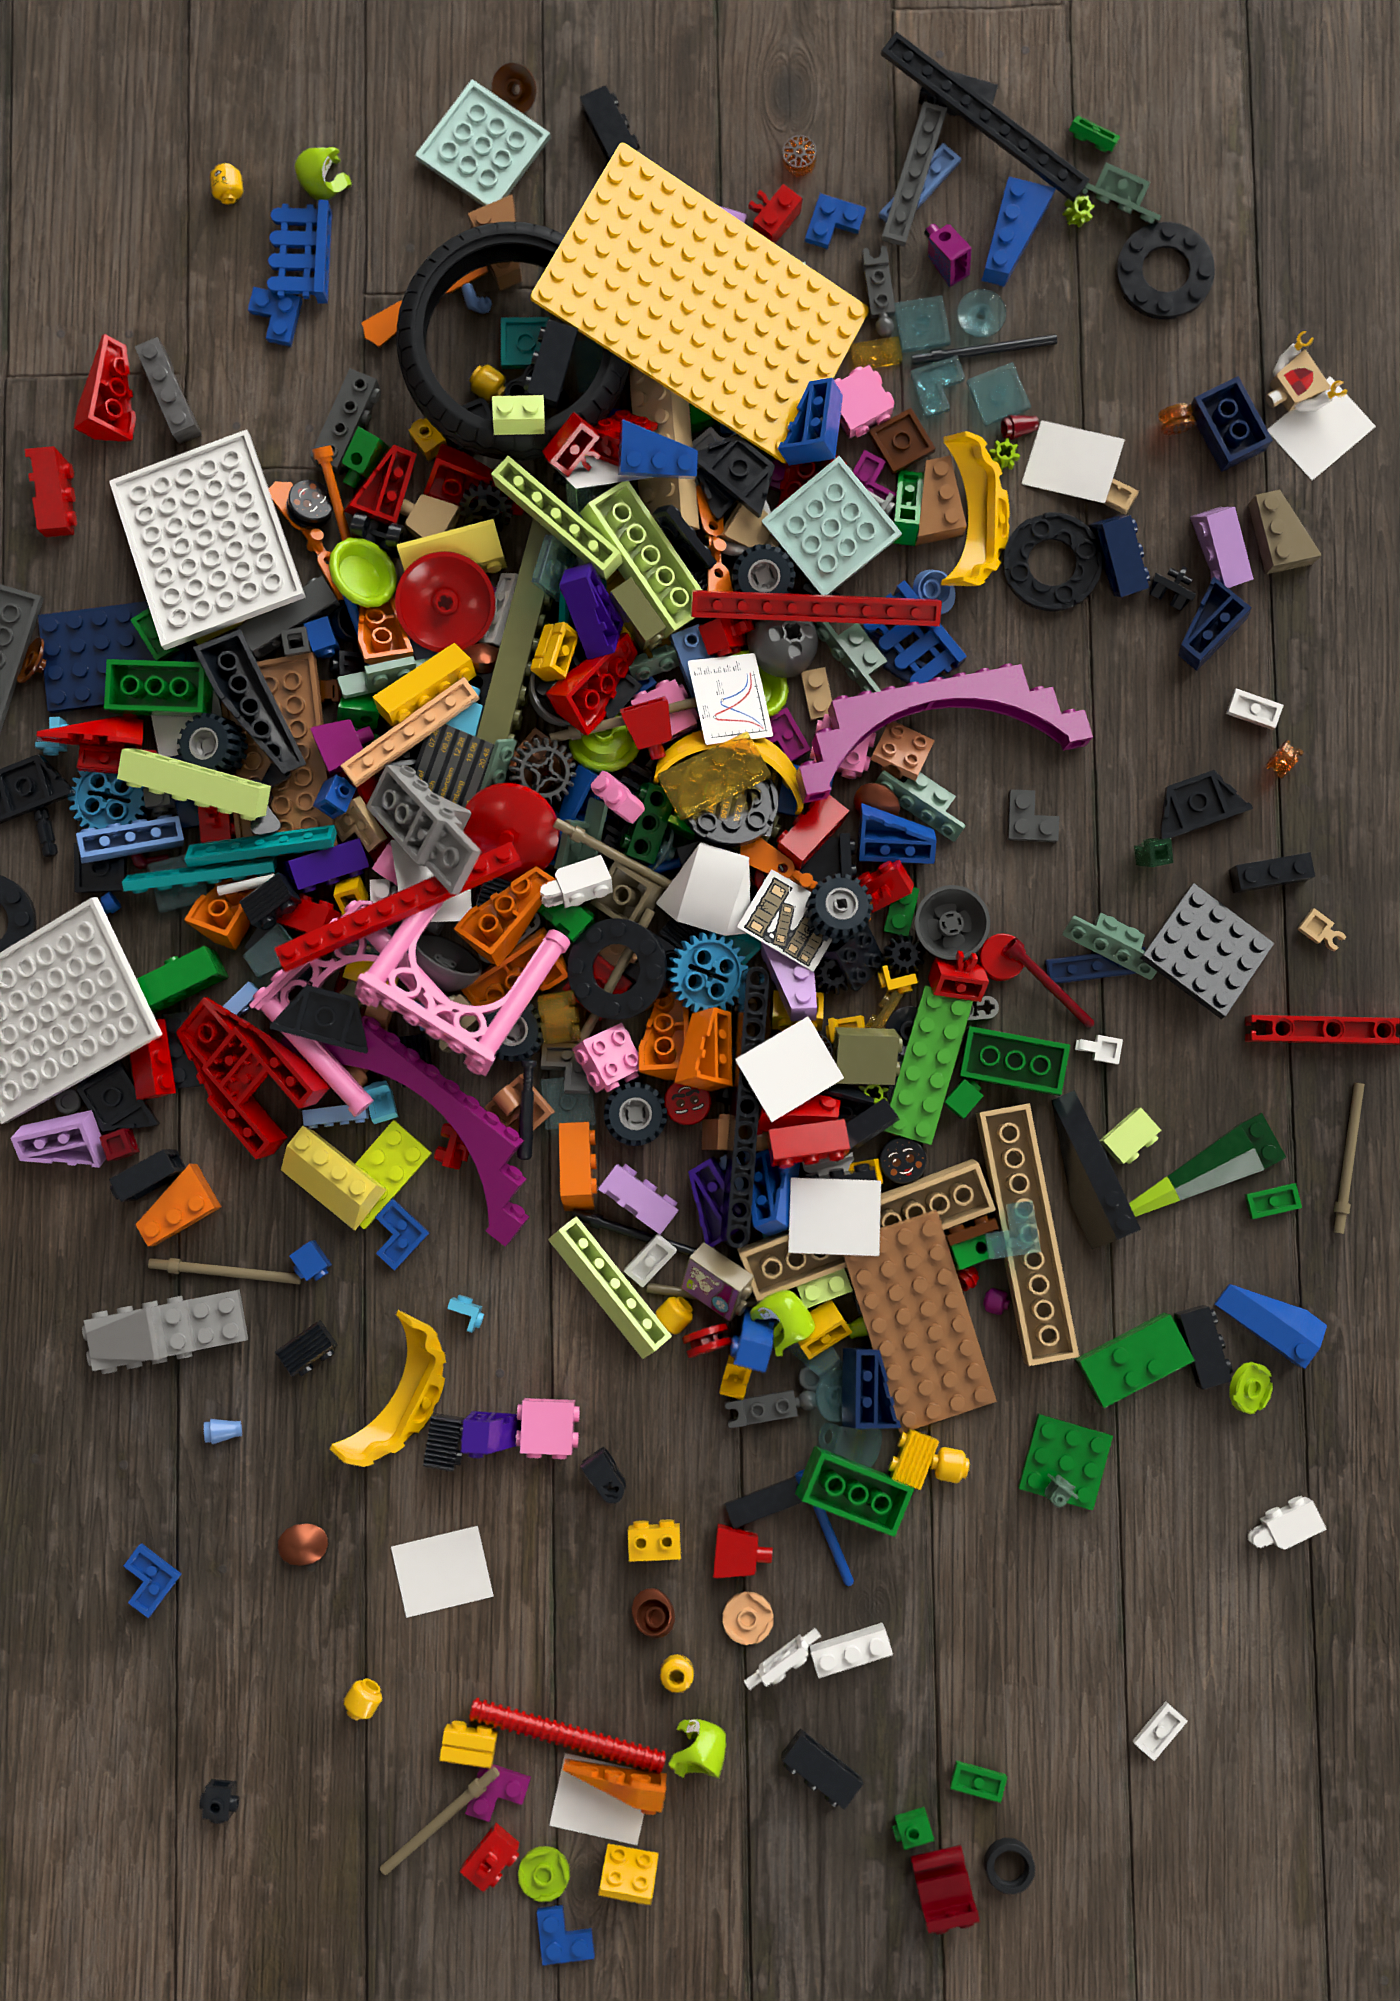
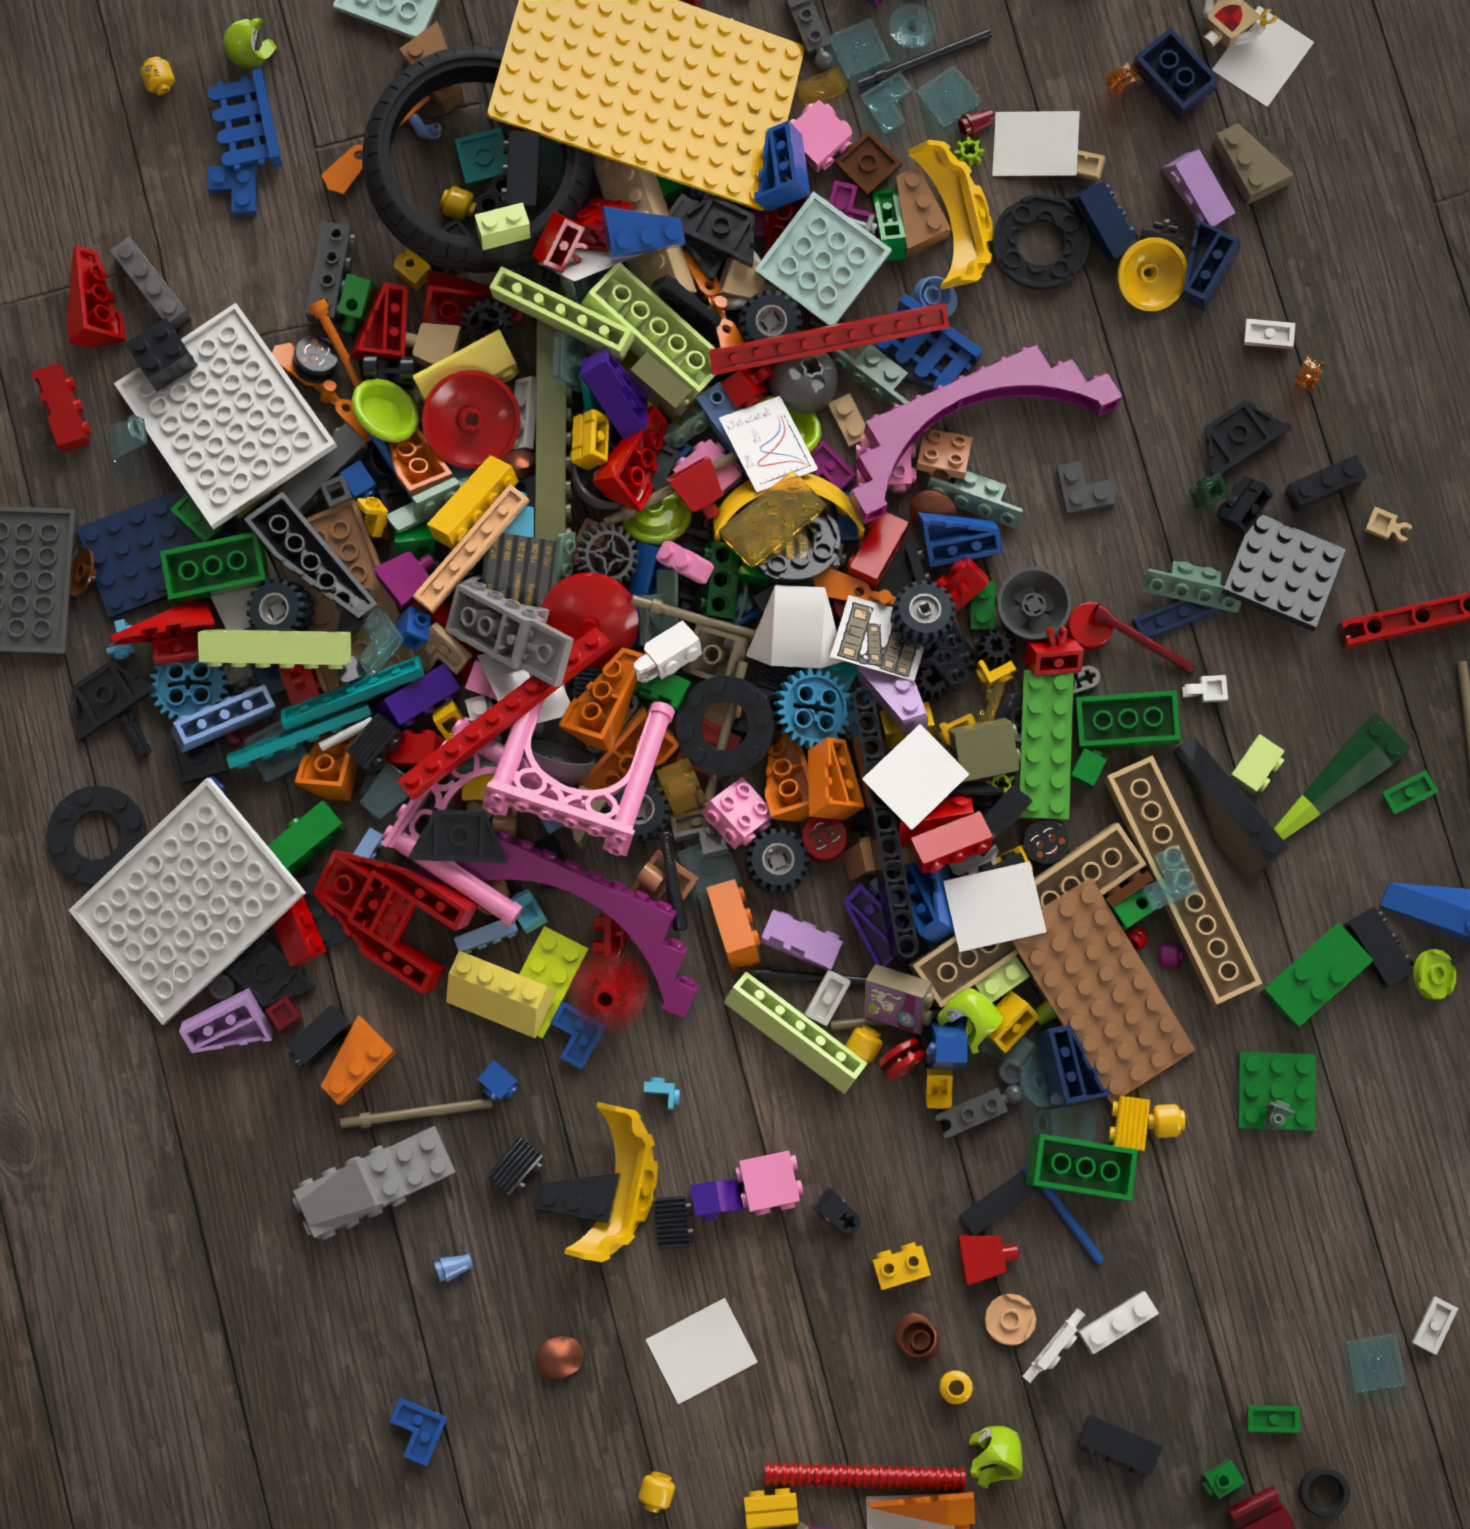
camera: 15 degrees left, 5 degrees down
(108, 536) = (126, 436): none -> clear light blue piece
(158, 463) = (161, 354): none -> black brick
(303, 804) = (384, 641): none -> clear light blue plate
(328, 673) = (375, 515): none -> yellow bracket
(362, 1395) = (580, 1198): none -> black wing
(438, 1202) = (609, 989): none -> red piece
(1092, 1752) = (1375, 1362): none -> clear light blue plate
(1166, 628) = (1164, 281): none -> yellow dish
(1185, 875) = (1244, 504): none -> black brick

